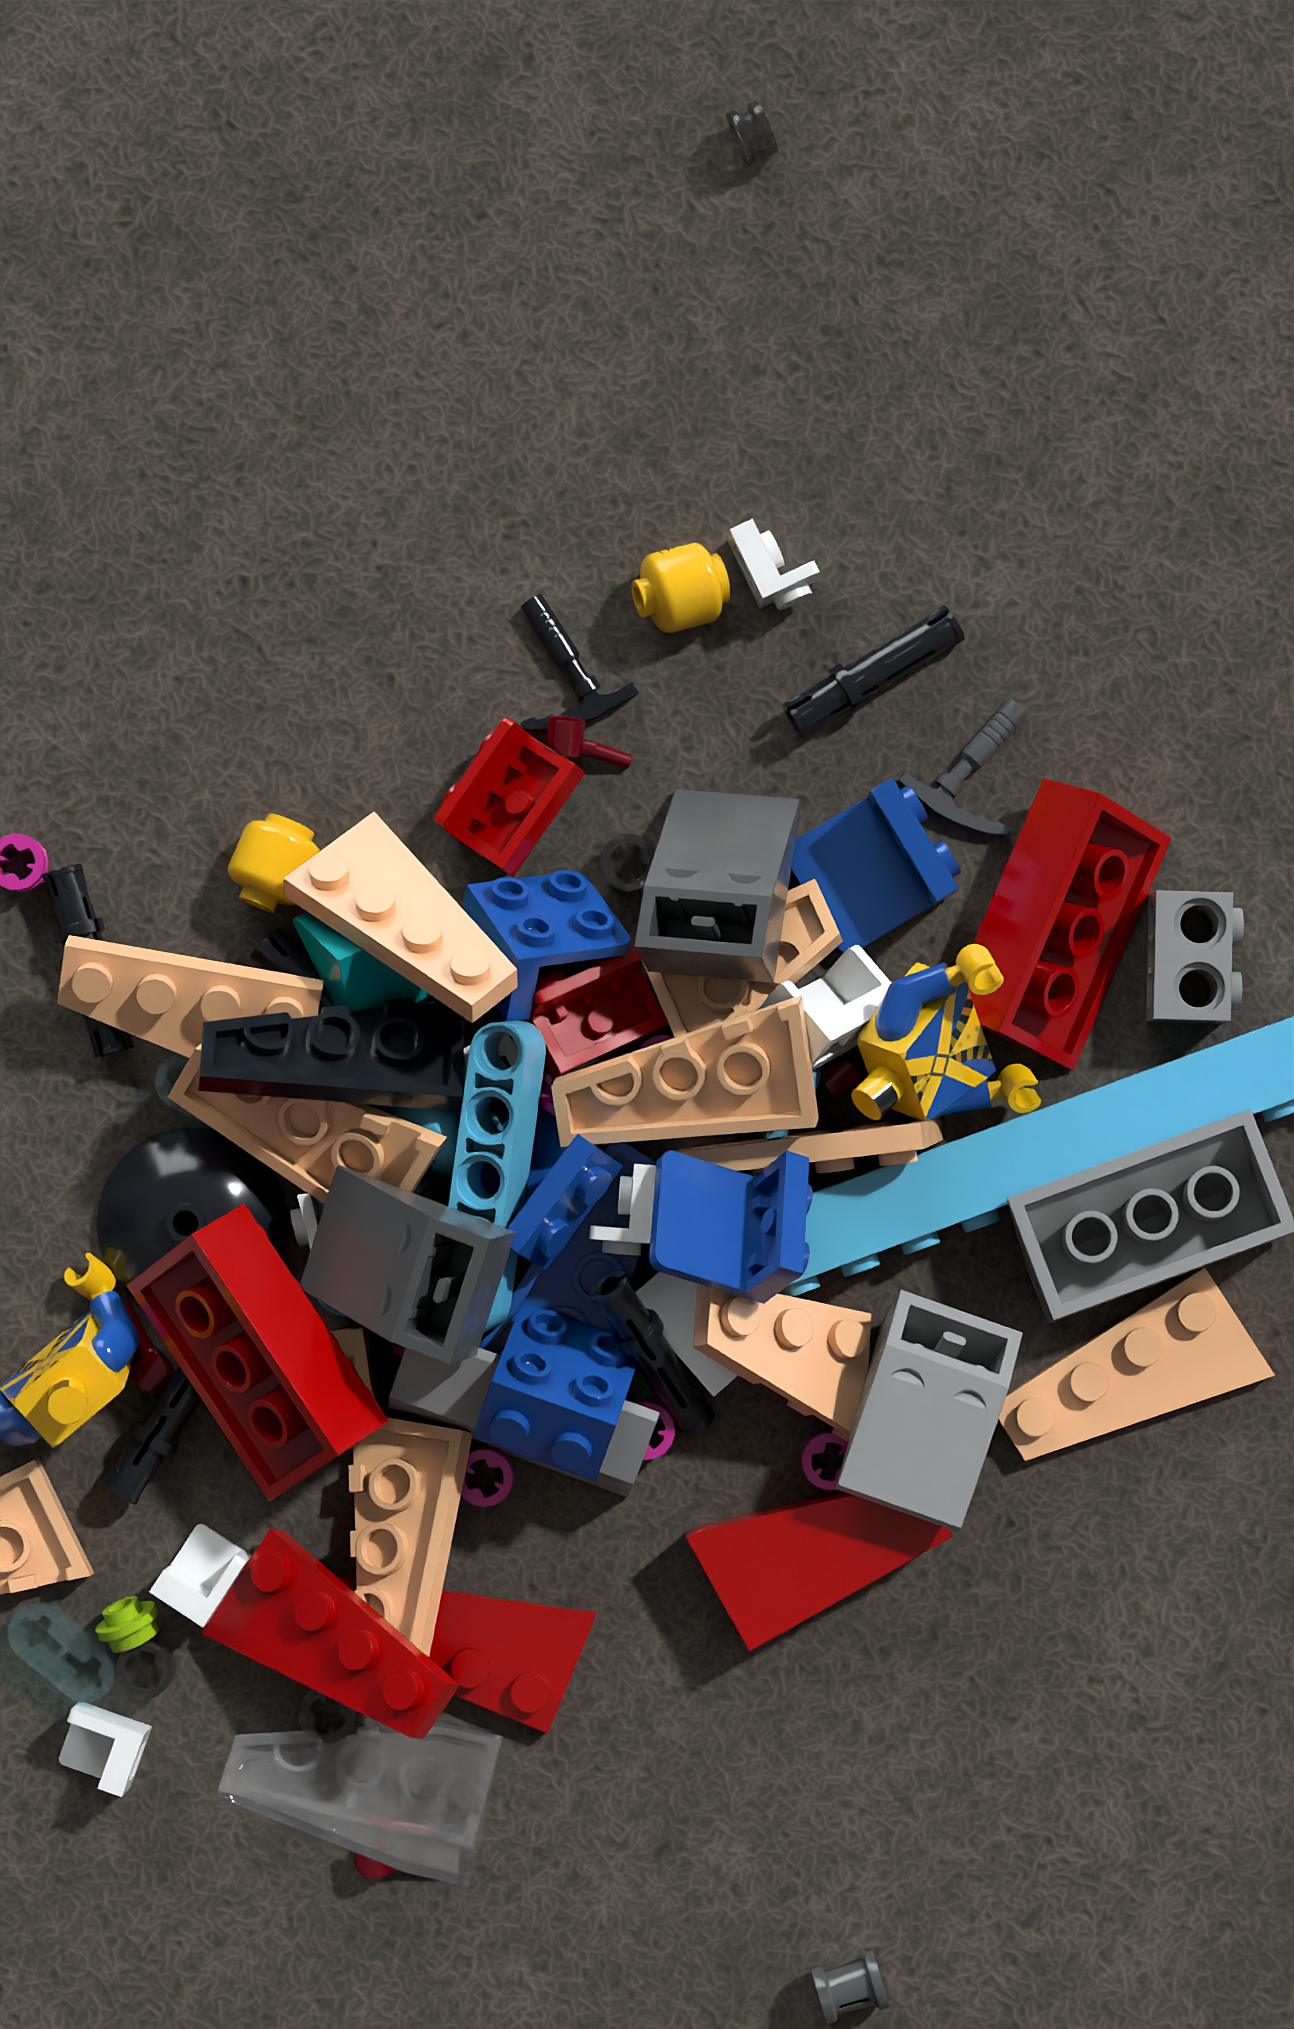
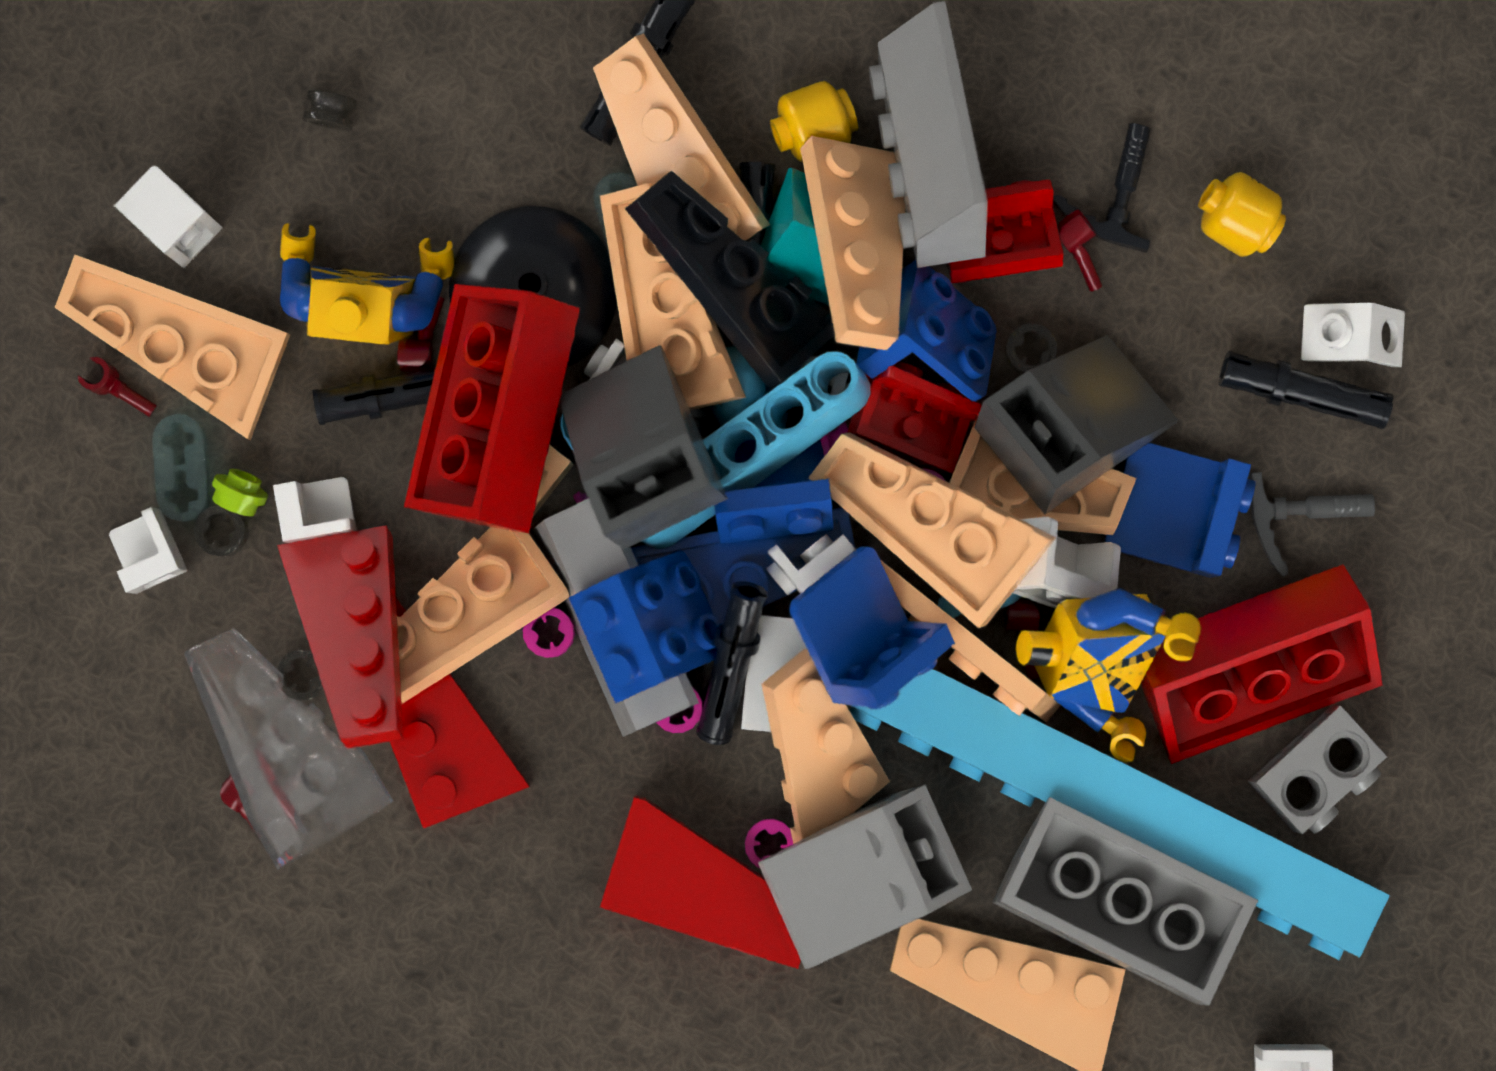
camera: 40 degrees right, 0 degrees up
(381, 785) = (931, 141): none -> light grey slope
(759, 559) = (1308, 247): white bracket -> none
(863, 590) = (1352, 333): none -> white bracket

